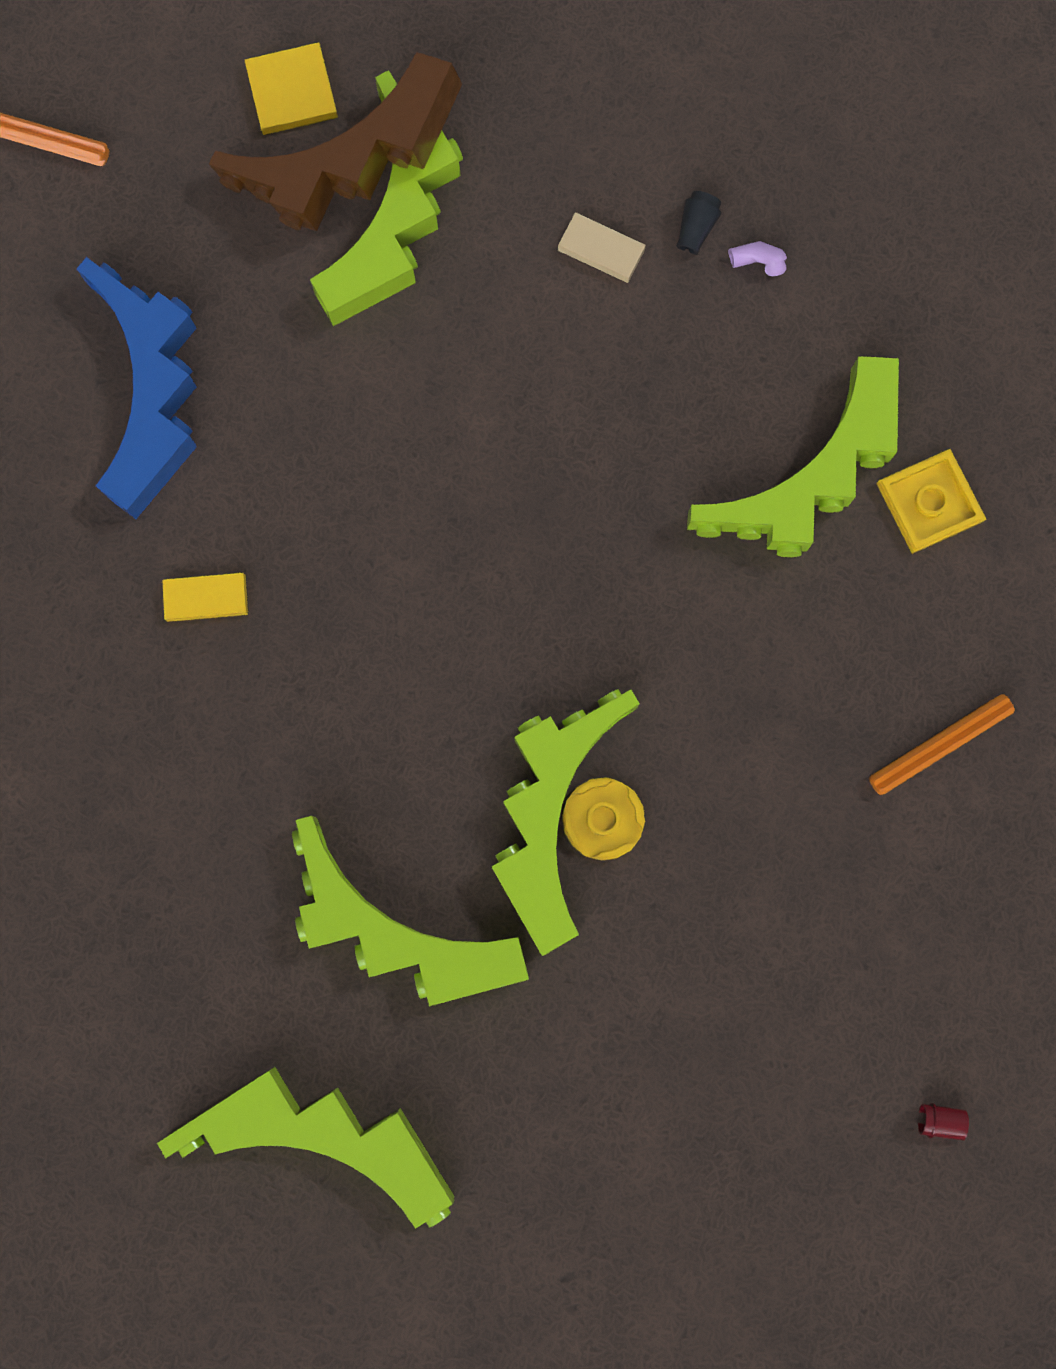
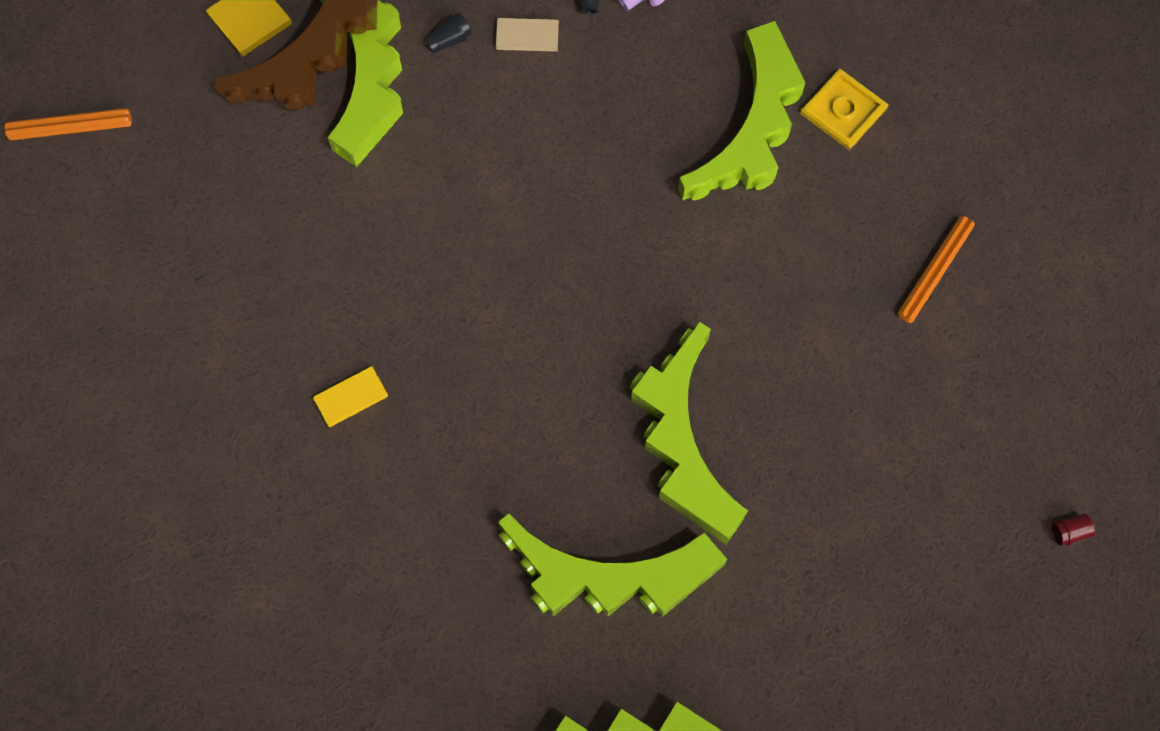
camera: 25 degrees left, 10 degrees down
(152, 442) = (261, 298): blue arch -> none
(511, 207) = (449, 33): none -> black cone
(592, 830) = (720, 436): yellow tile -> none

